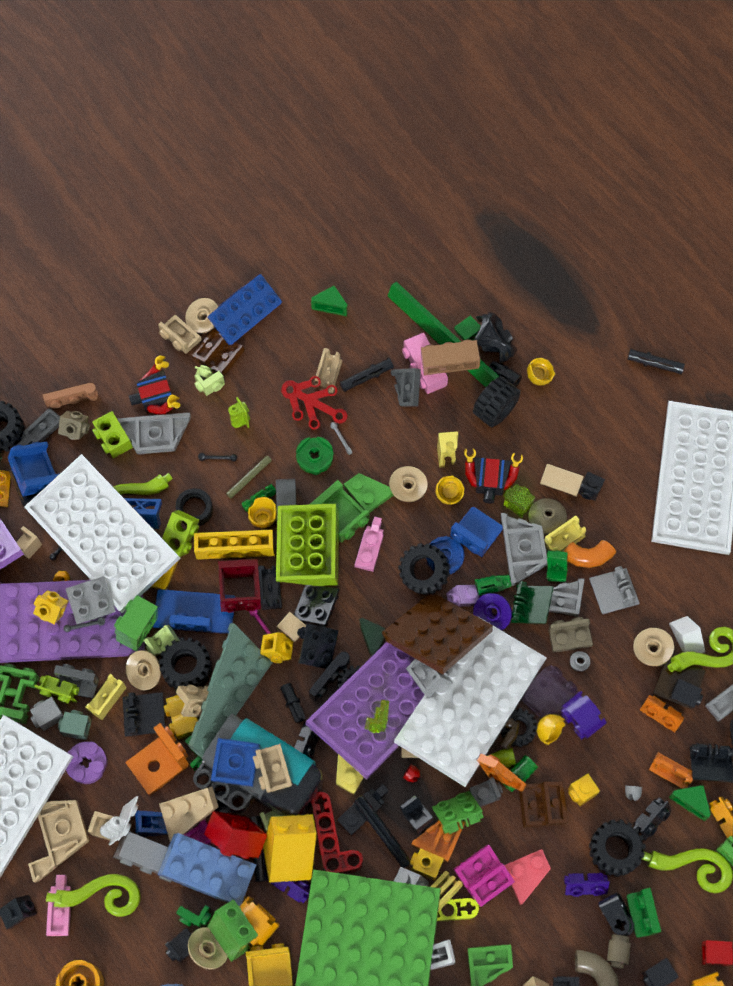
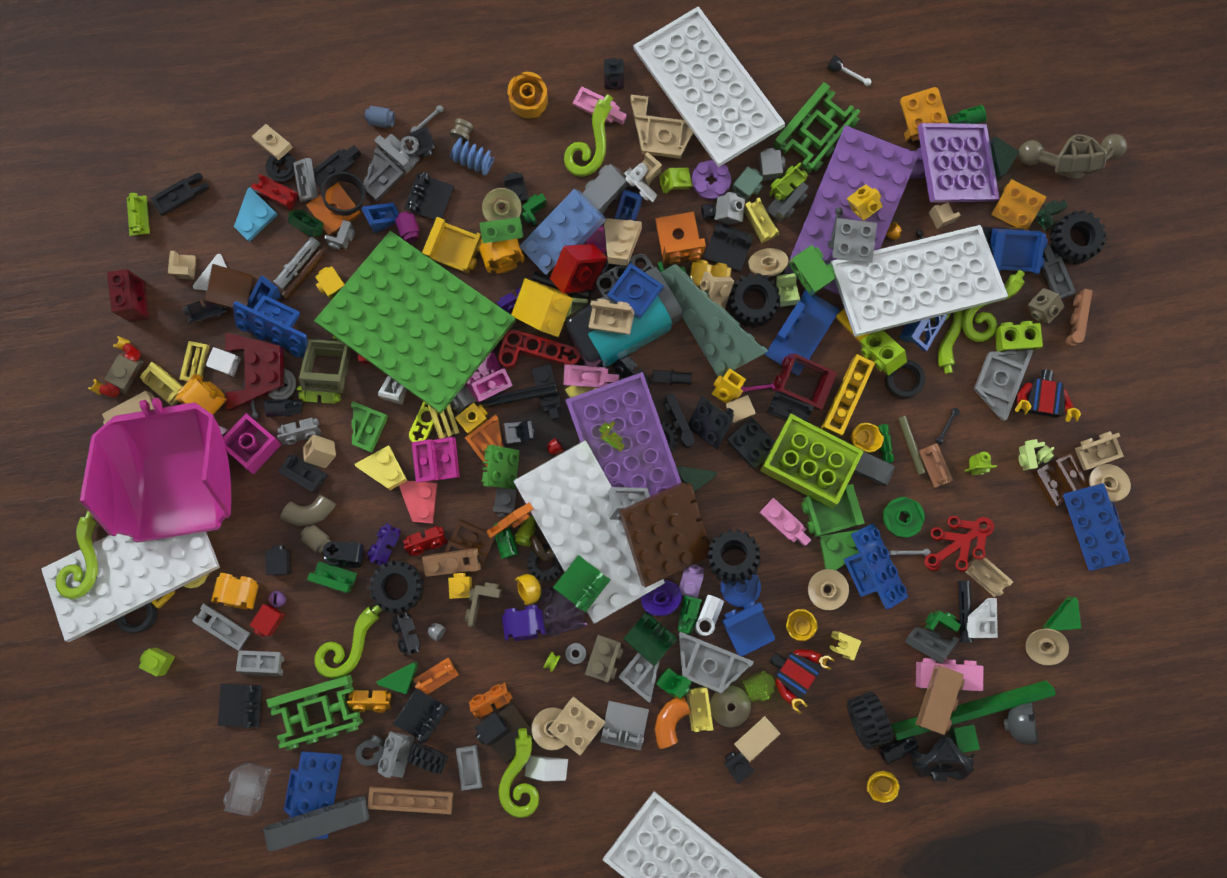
camera: 115 degrees right, 15 degrees up
(64, 459) = (1012, 286): none -> lime plant
(101, 795) = (675, 179): none -> lime bracket
(107, 729) = (729, 209): none -> light grey brick
(119, 749) = (708, 211): none -> black hinge
(256, 450) = (935, 465): none -> nougat hinge
(332, 775) = (587, 376): none -> bright pink hinge
(361, 304) = (1047, 654): none -> tan dish
(368, 357) = (983, 621): none -> white wing
(372, 456) = (873, 568): none -> blue bracket
(384, 865) = (488, 379): none -> dark pink slope
(385, 393) = (947, 620): none -> green bracket
(433, 294) = (1022, 724): none -> dark grey cylinder
(482, 567) = (709, 613): none -> white piece
(518, 924) = (383, 468): none -> light yellow wing
(520, 680) = (582, 583): none -> green hinge
(566, 810) = (450, 562): none -> medium nougat plate
(568, 851) = (417, 545): none -> red hinge
(573, 763) = (489, 589): none -> dark tan bracket
(599, 677) = (551, 661): none -> lime bush
(639, 627) = (576, 725): none -> tan hinge
(696, 963) = (281, 599): none -> medium lavender hinge

